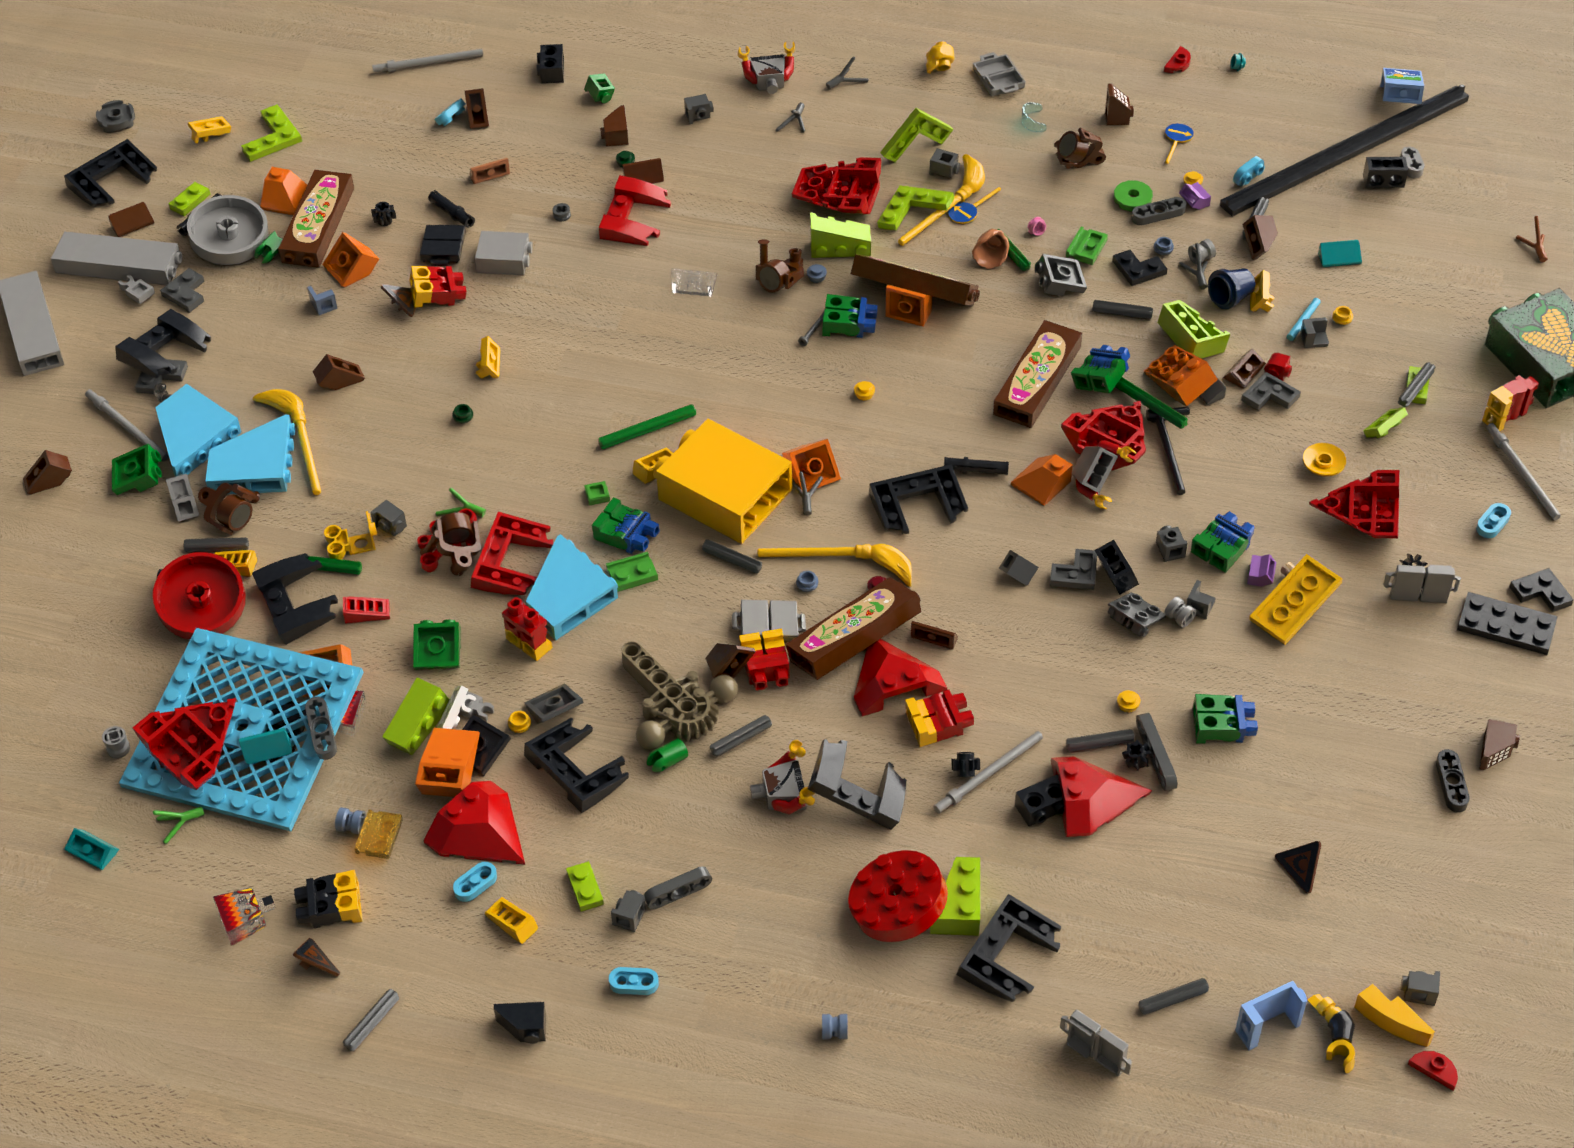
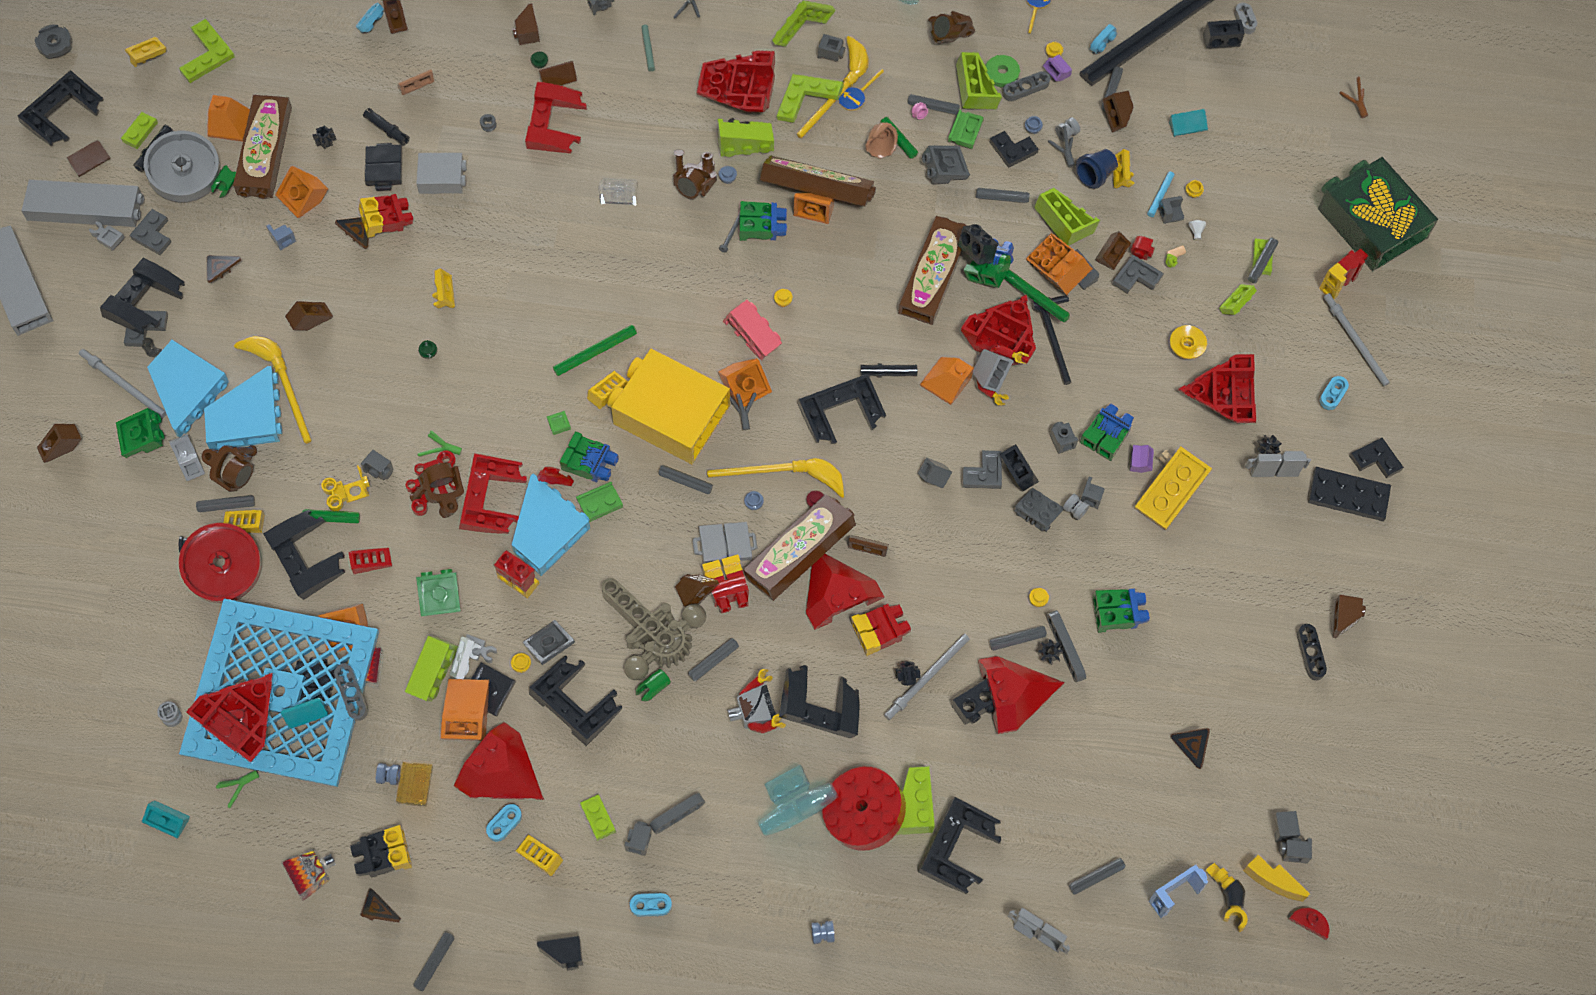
camera: 10 degrees left, 15 degrees up
(249, 321) = (219, 264): none -> piece
(583, 541) = (552, 476): none -> red plate
(744, 155) = (648, 48): none -> sand green bar
(816, 883) = (794, 800): none -> clear light blue plate
(825, 414) = (753, 329): none -> coral wedge
(1054, 221) = (934, 104): none -> dark grey axle
(1088, 344) = (977, 244): none -> black brick
(1101, 203) = (975, 84): none -> lime wedge
(1312, 377) = (1172, 255): none -> arm
(1343, 351) = (1197, 227): none -> white rock
(1411, 957) = (1287, 826): none -> dark grey panel

